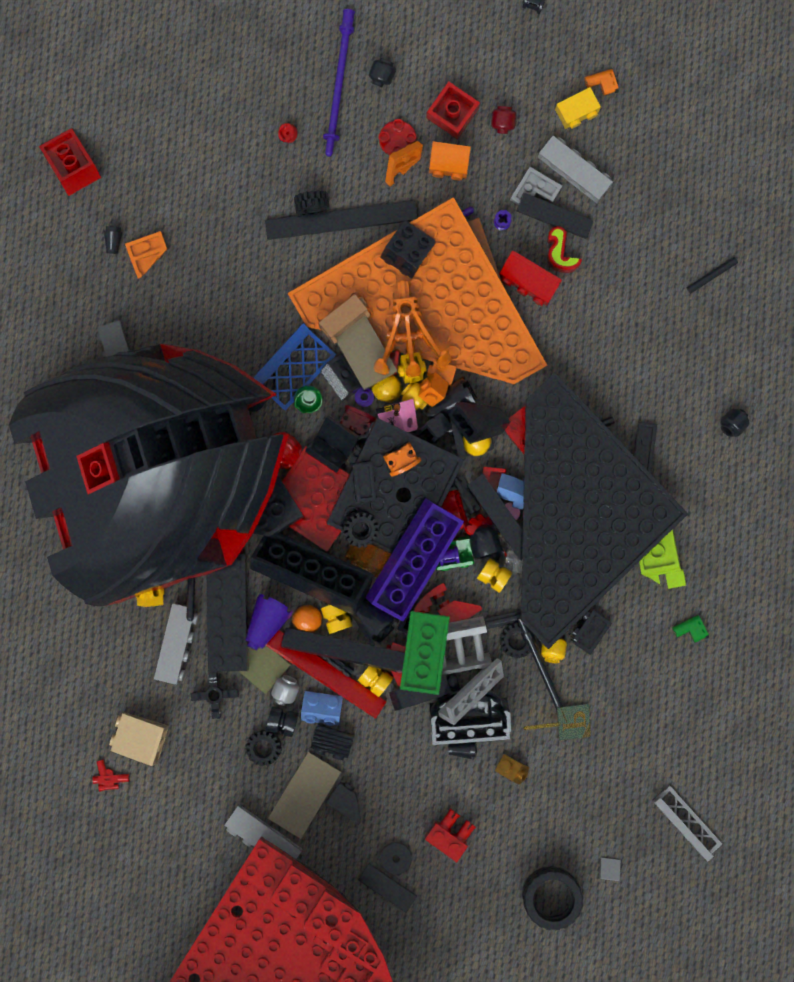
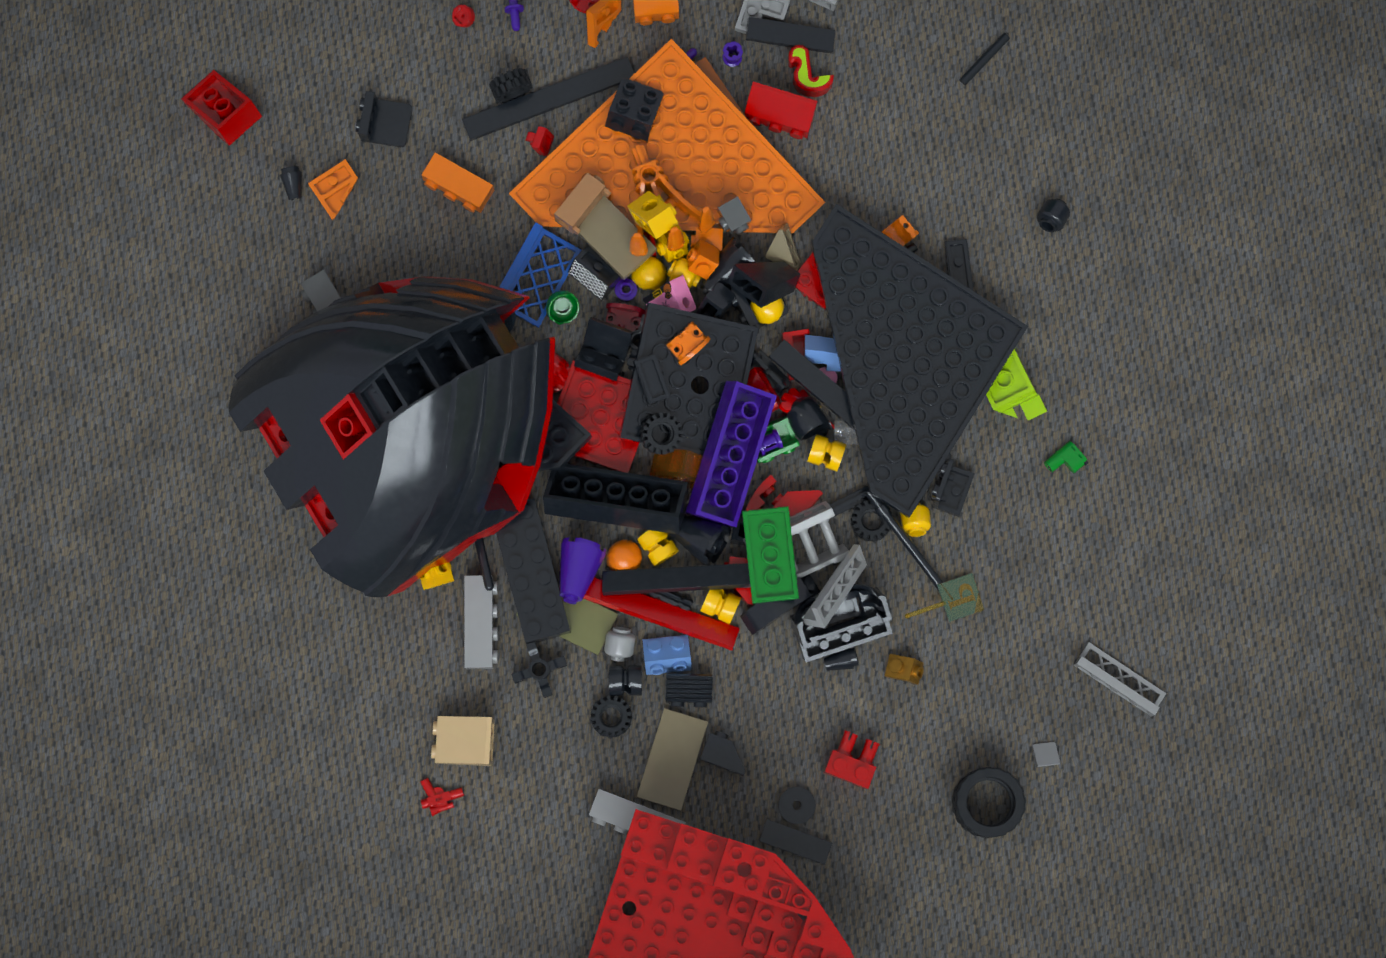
camera: 20 degrees left, 5 degrees down
(200, 206) = (383, 121): none -> black bracket
(247, 274) = (457, 183): none -> orange brick
(325, 255) = (541, 140): none -> red tile
(399, 344) = (653, 214): none -> yellow brick
(467, 360) = (734, 216): none -> dark grey brick
(503, 396) = (784, 248): none -> dark tan slope
(600, 407) = (899, 233): none -> orange piece

